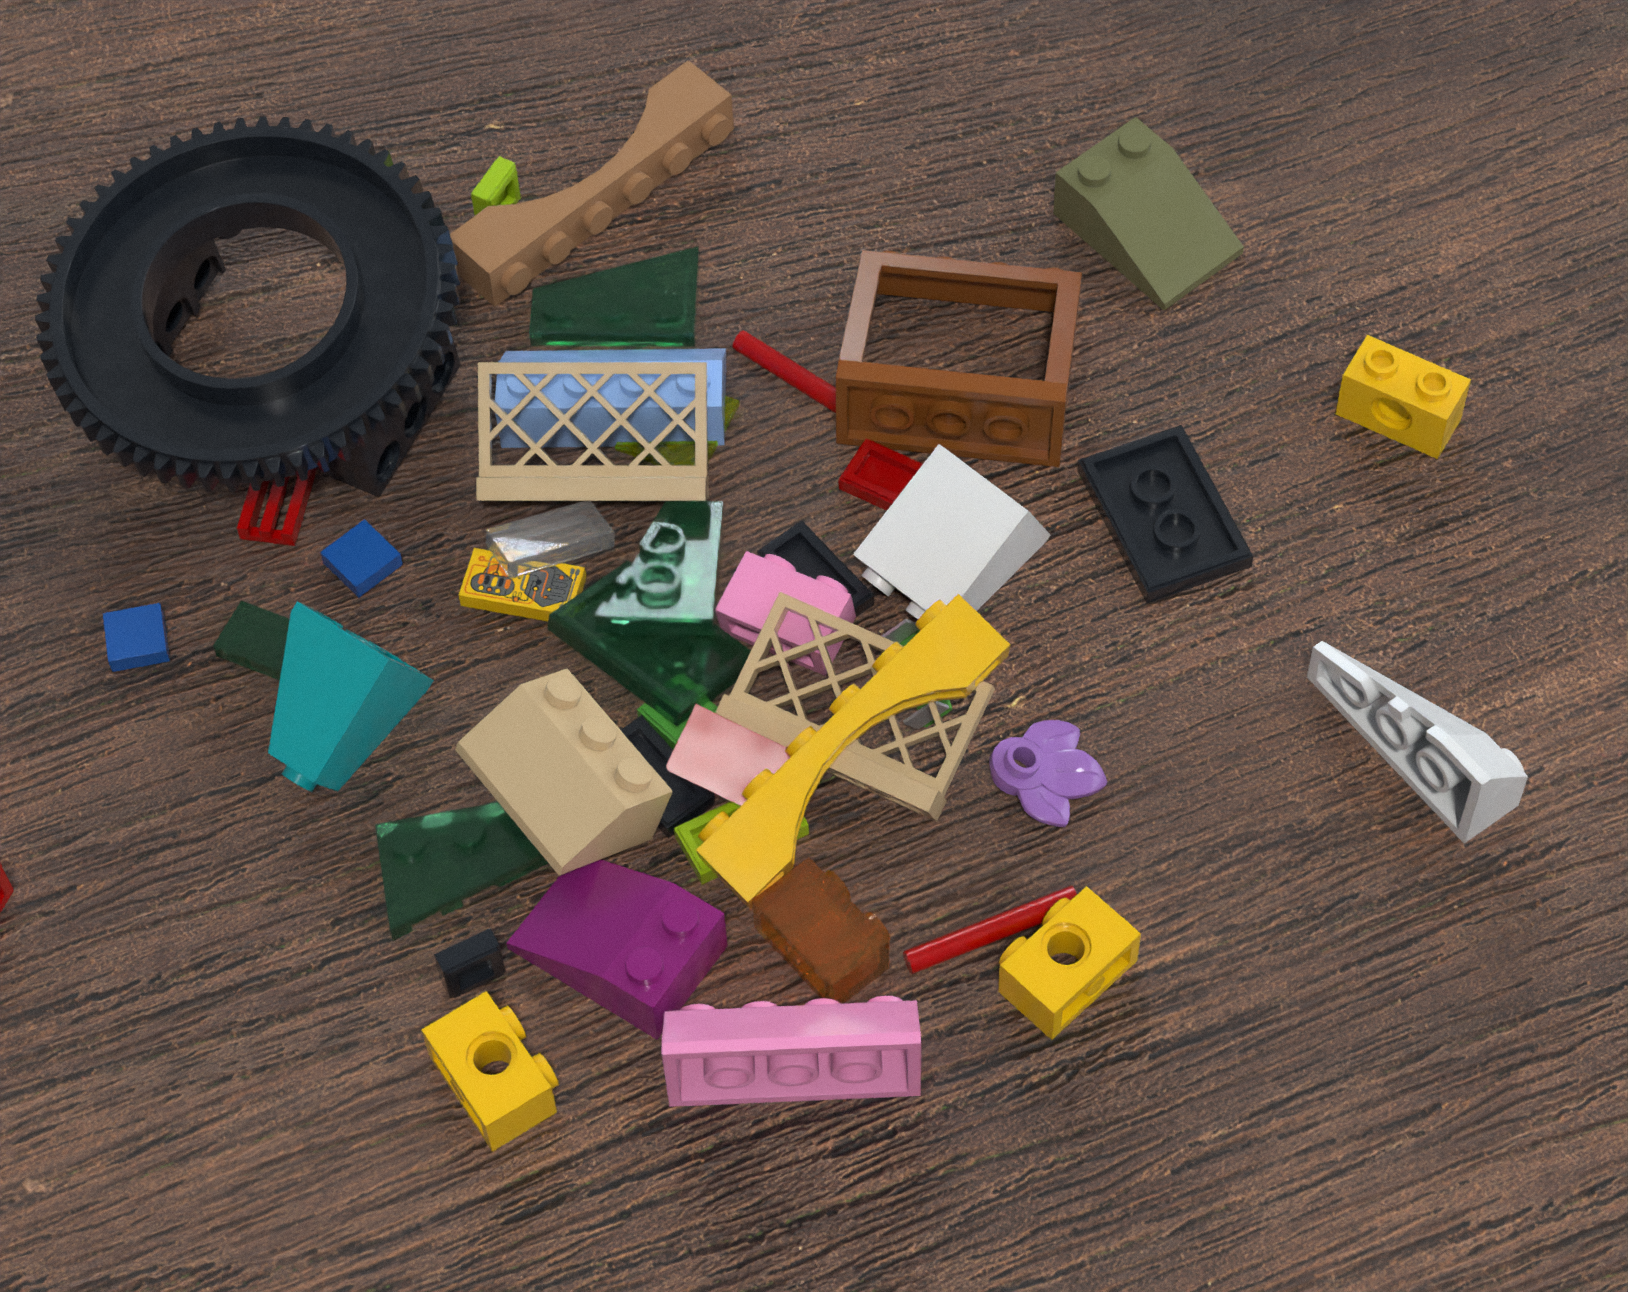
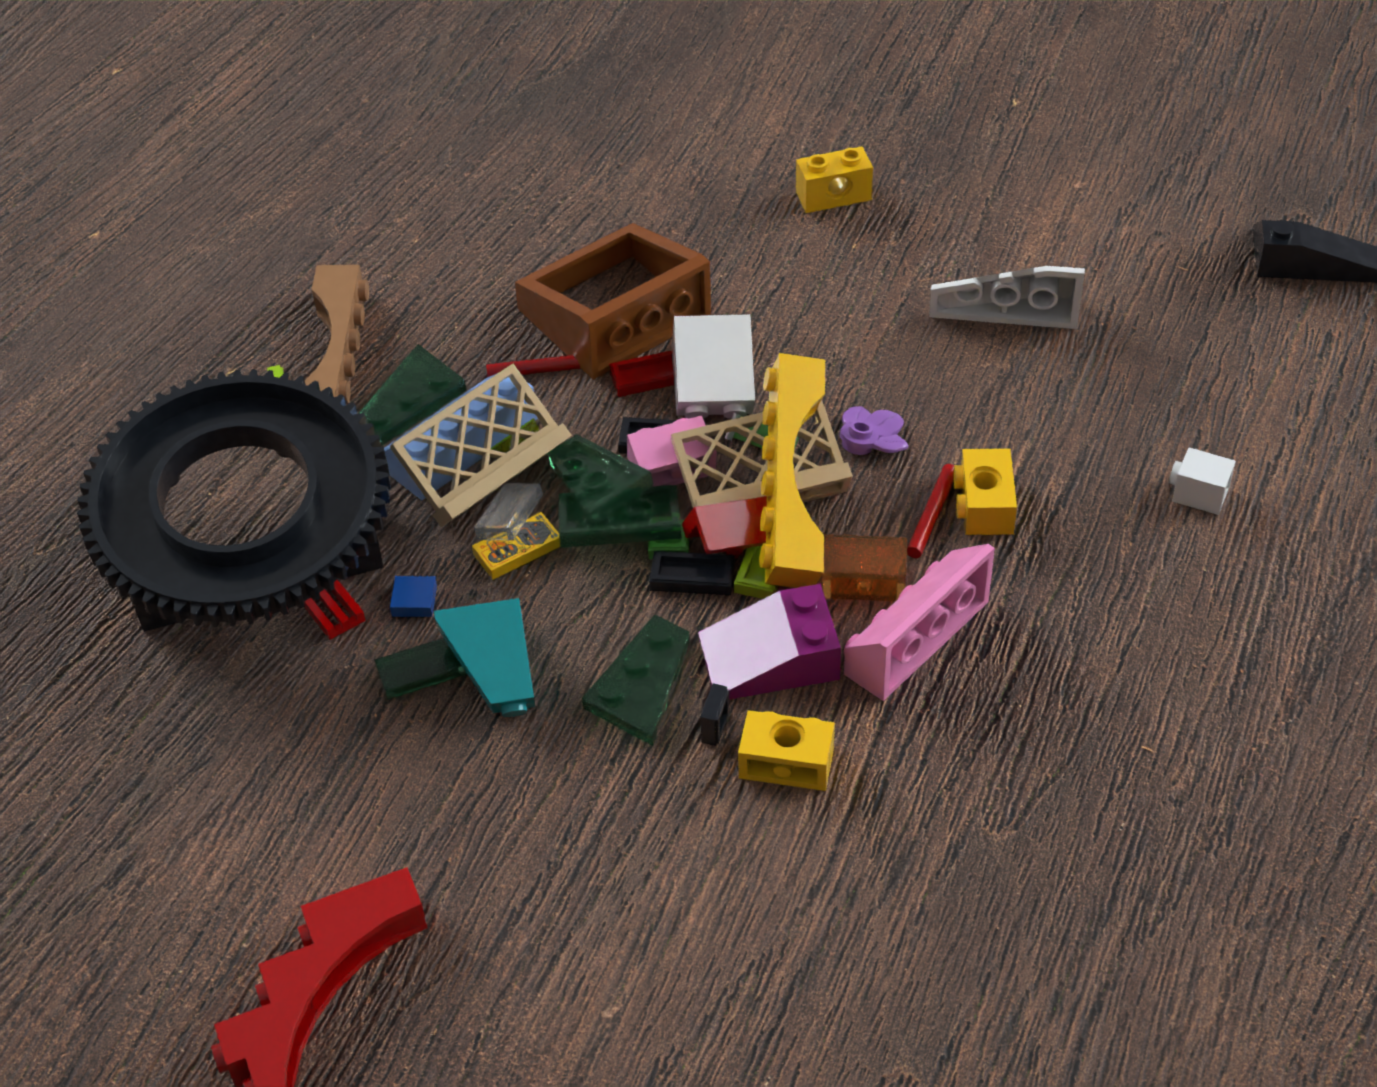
camera: 45 degrees left, 10 degrees down
(136, 637) = (332, 722): blue tile -> none
(565, 773) = (657, 591): tan slope -> none
(1145, 214) = (622, 189): olive slope -> none
(1164, 513) = (785, 298): black tile -> none
(1333, 1173) = (1202, 480): none -> white brick

